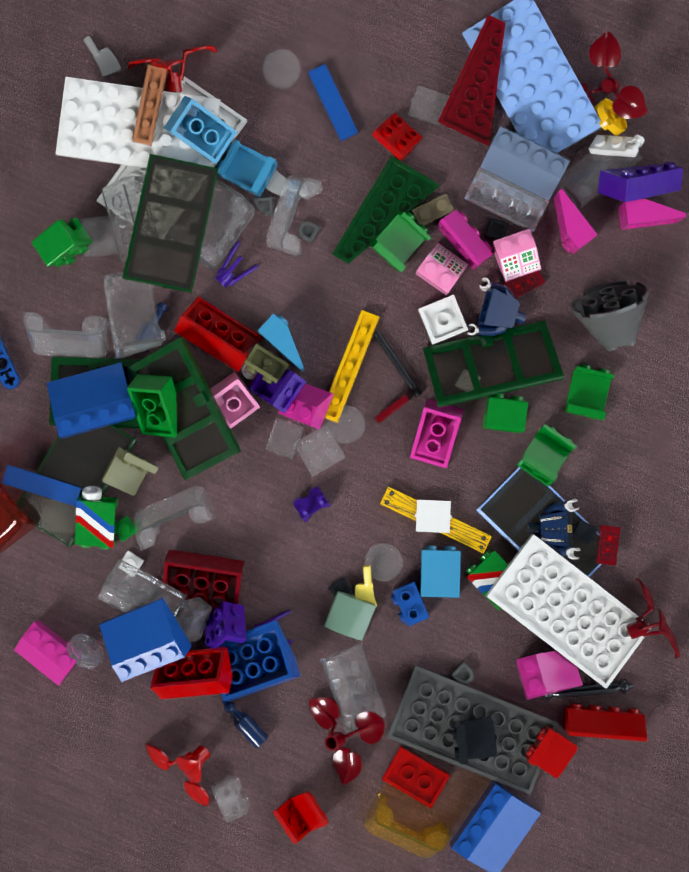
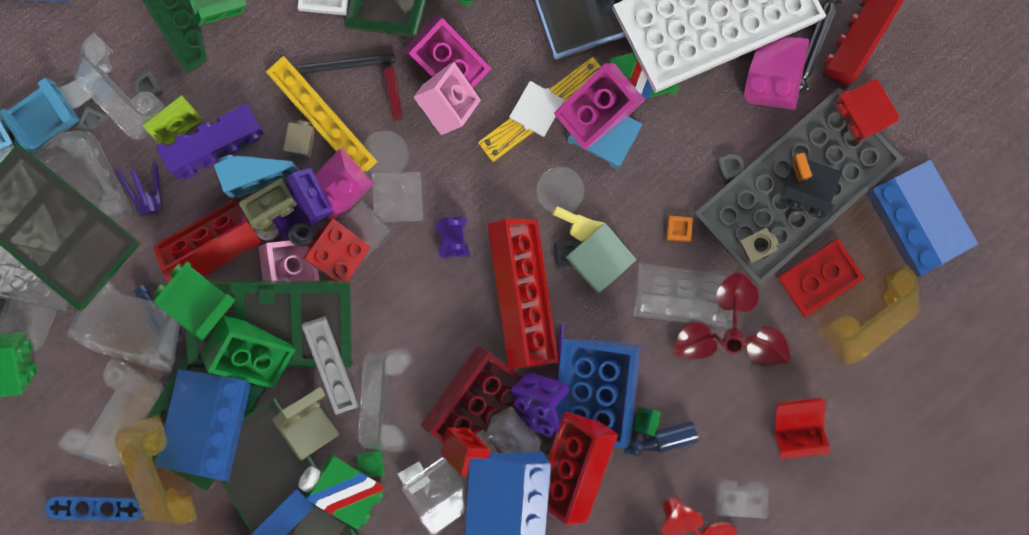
camera: 65 degrees left, 5 degrees down
(53, 367) = (135, 449): none -> clear yellow windscreen
(165, 589) = (460, 446): none -> red panel
(169, 352) = (192, 300): none -> green panel
(177, 466) = (330, 365): none -> light grey tile
(251, 705) = (646, 421): none -> green plate
(257, 428) = (336, 251): none -> red plate
(261, 398) = (303, 230): none -> black plate
(290, 266) = (173, 121): none -> lime tile
(290, 299) = (211, 143): none -> dark purple wedge
(296, 574) = (523, 293): none -> red arch
(325, 359) = (299, 139): none -> dark tan brick
(399, 659) = (679, 228): none -> orange tile
(406, 450) = (447, 99): none -> bright pink slope
(409, 715) = (750, 253): none -> dark tan brick
(410, 604) = (622, 184): blue brick -> none
(455, 561) = (599, 105): none -> dark pink slope
(484, 726) = (801, 167): none -> orange tile

